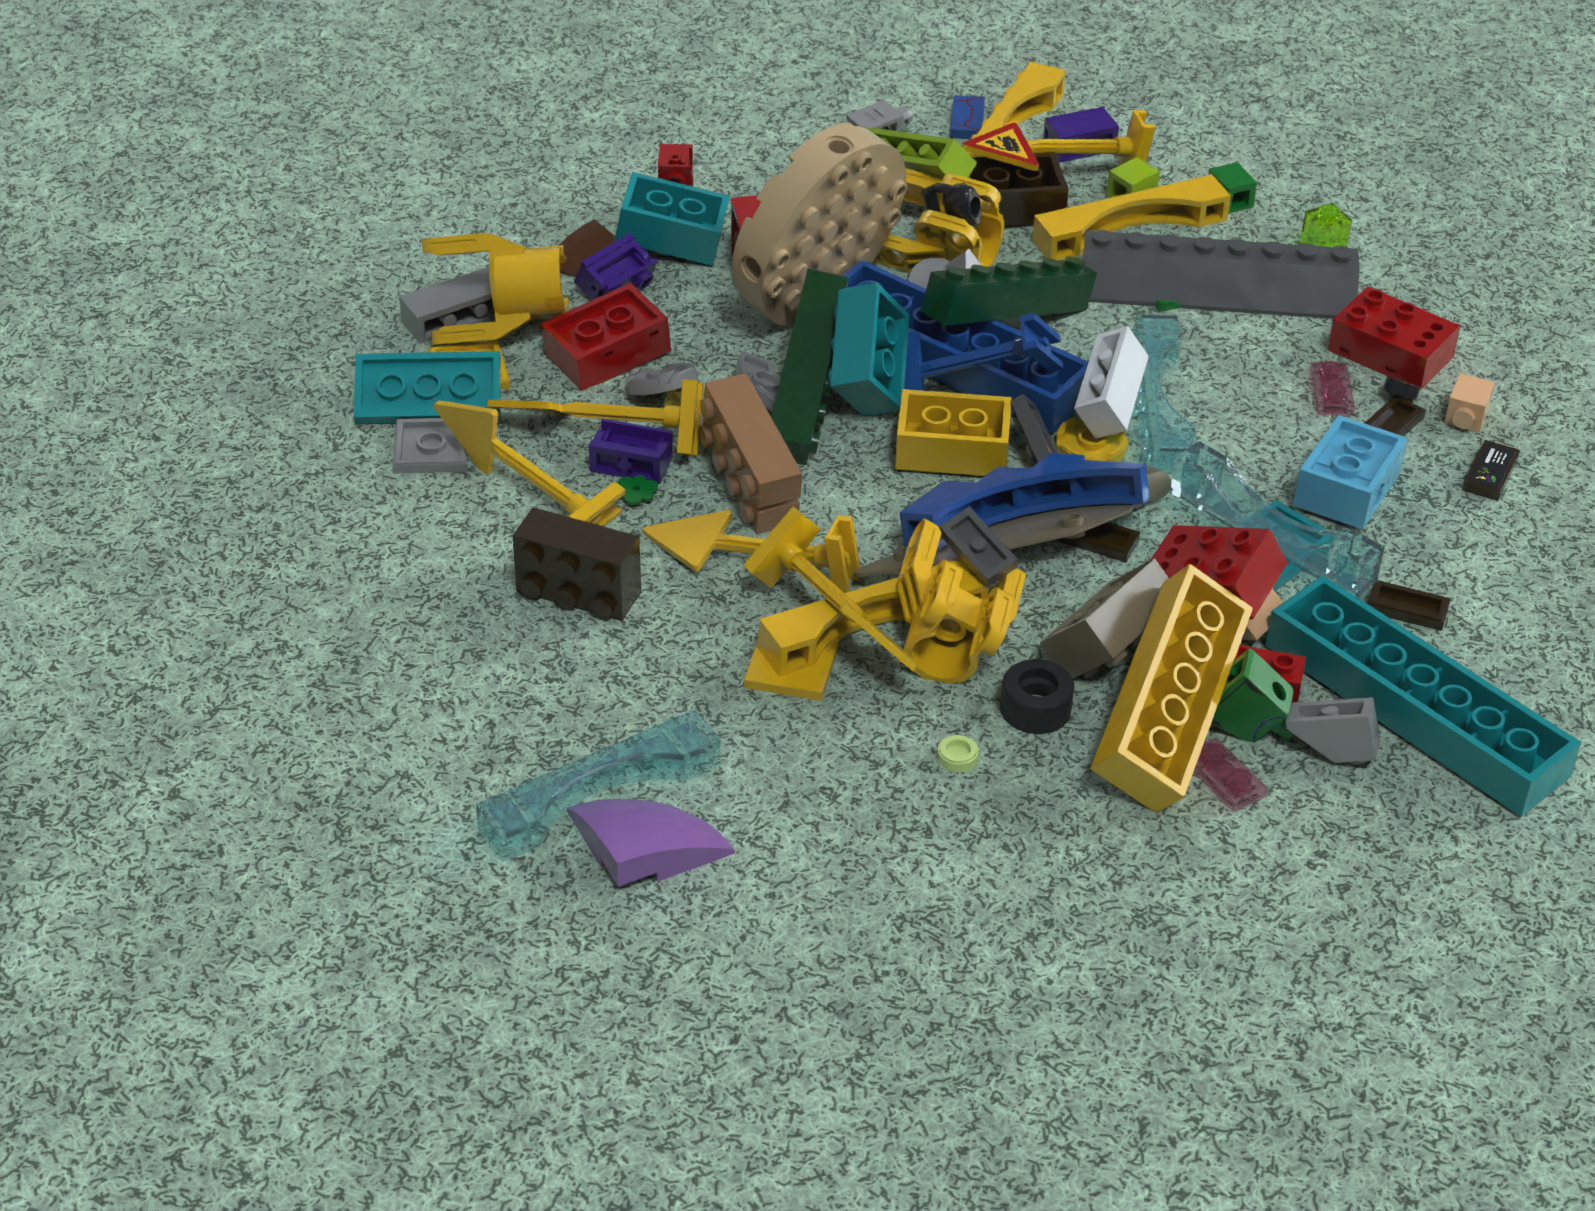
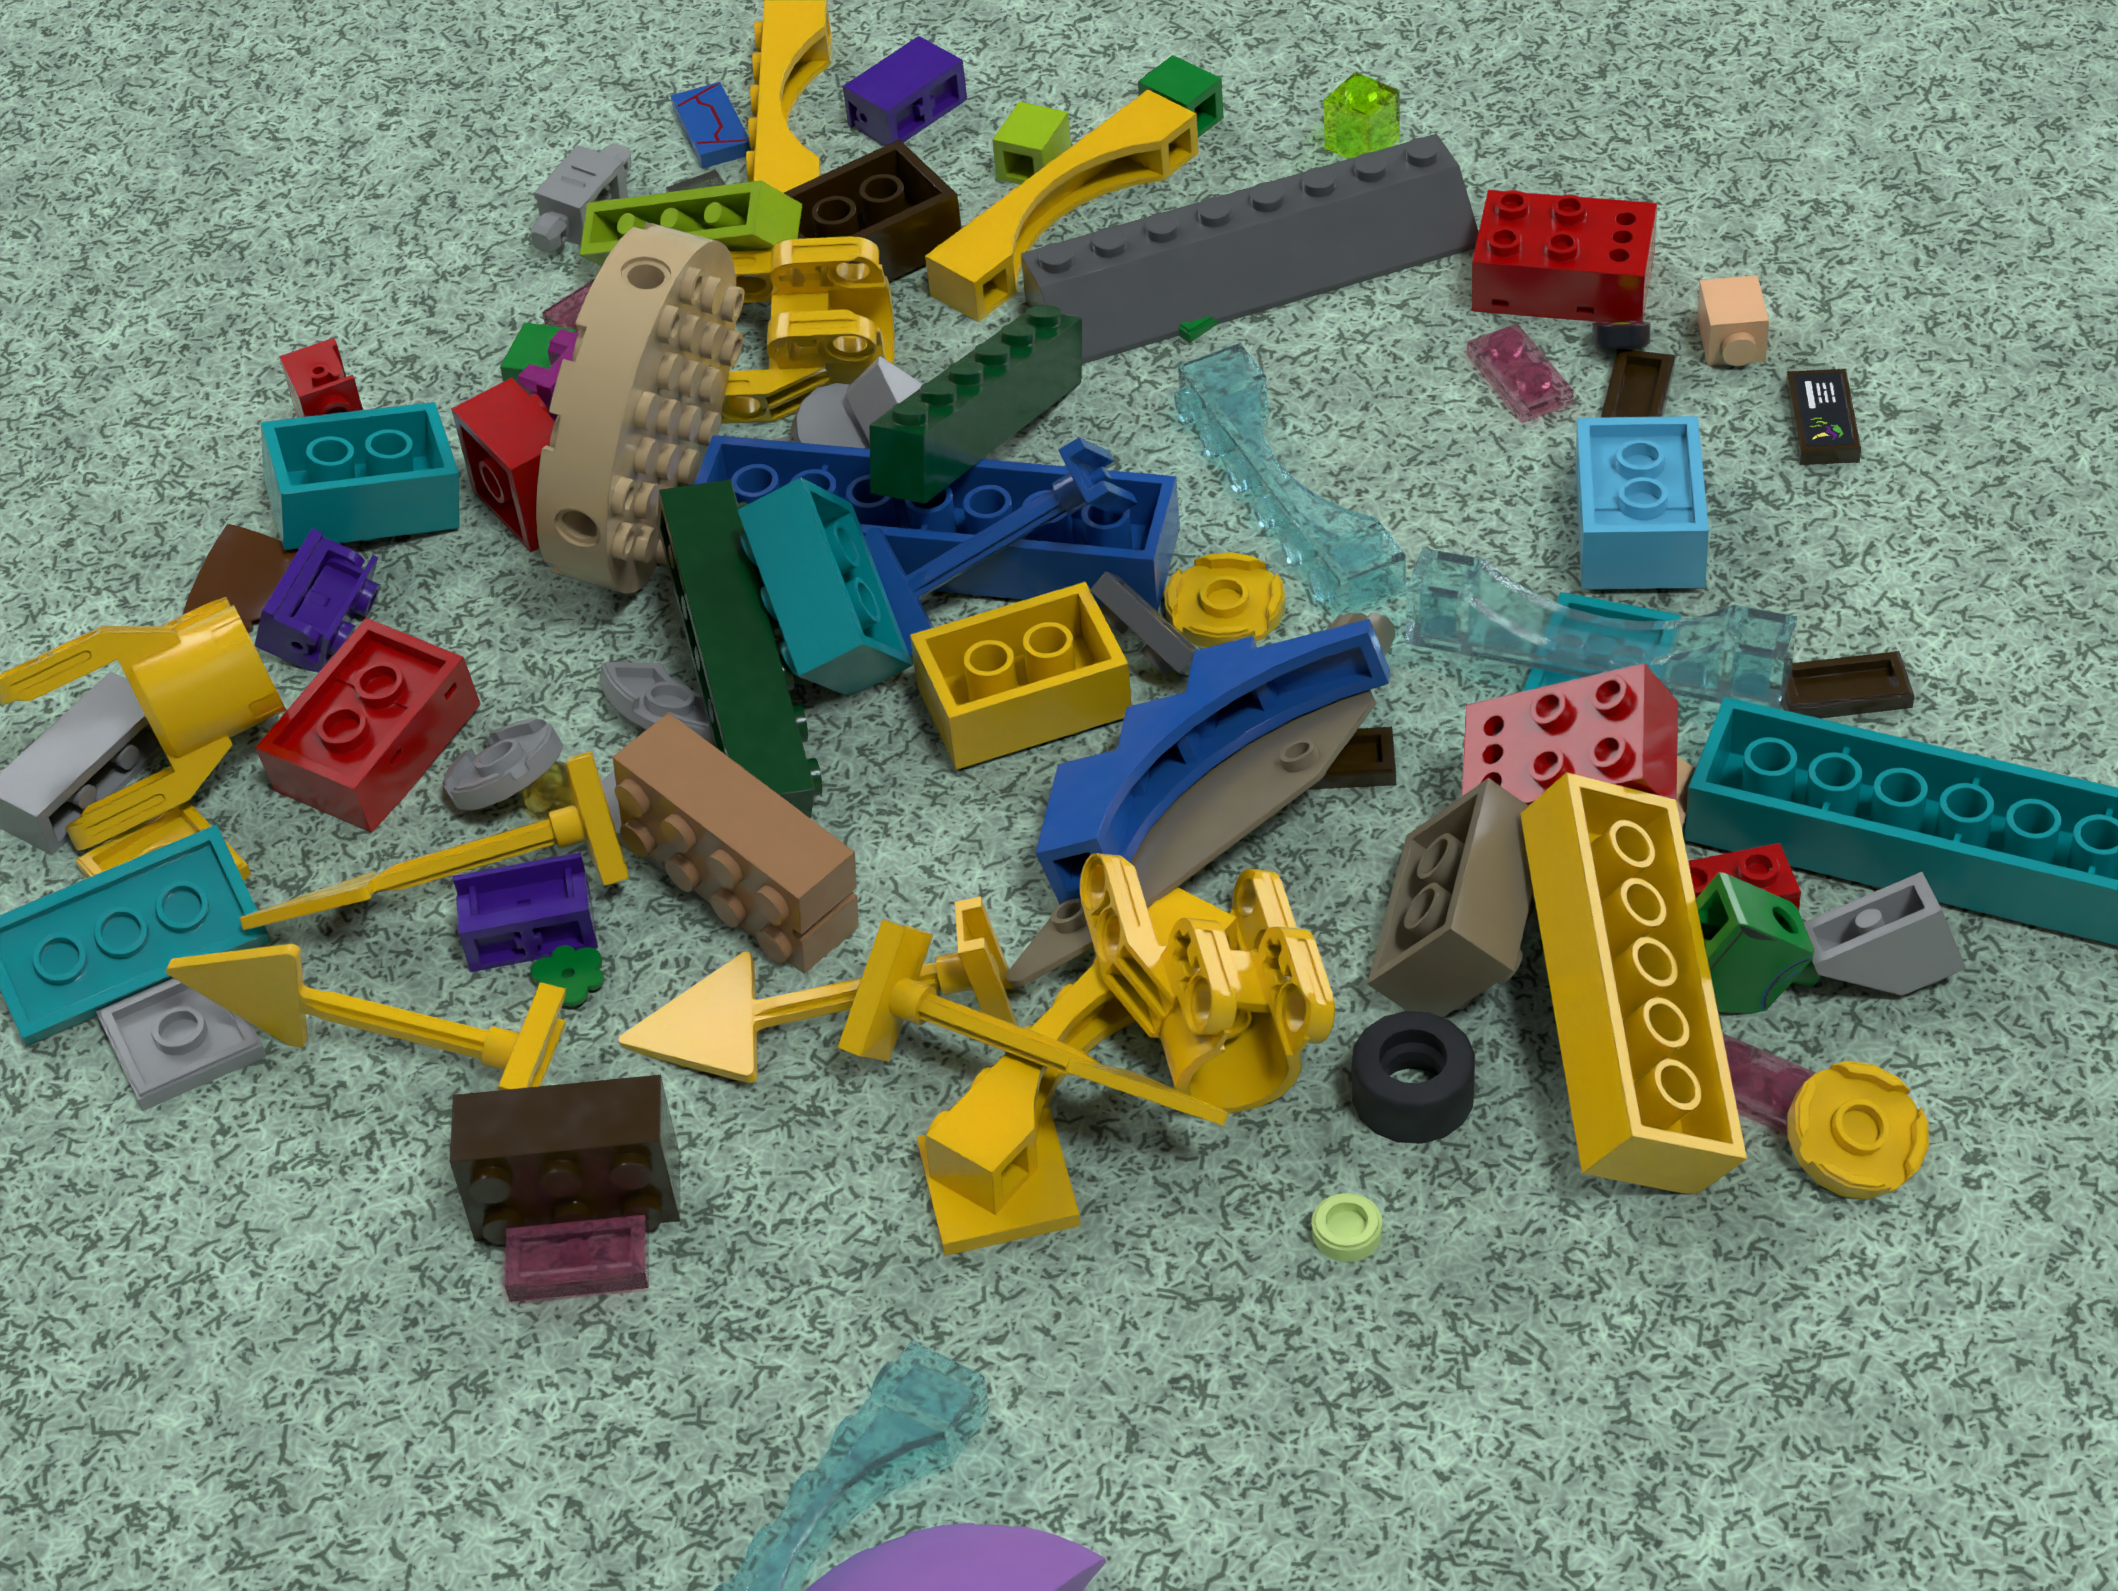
camera: 20 degrees left, 5 degrees up
(559, 615) = (577, 1258): none -> clear pink plate
(959, 201) = (821, 280): black piece -> none
(978, 546) = (1194, 862): dark grey plate -> none
(1011, 147) = (827, 157): yellow piece -> none
(1111, 382) = (1218, 496): white brick -> none
(1260, 812) = (1857, 1130): none -> yellow tile

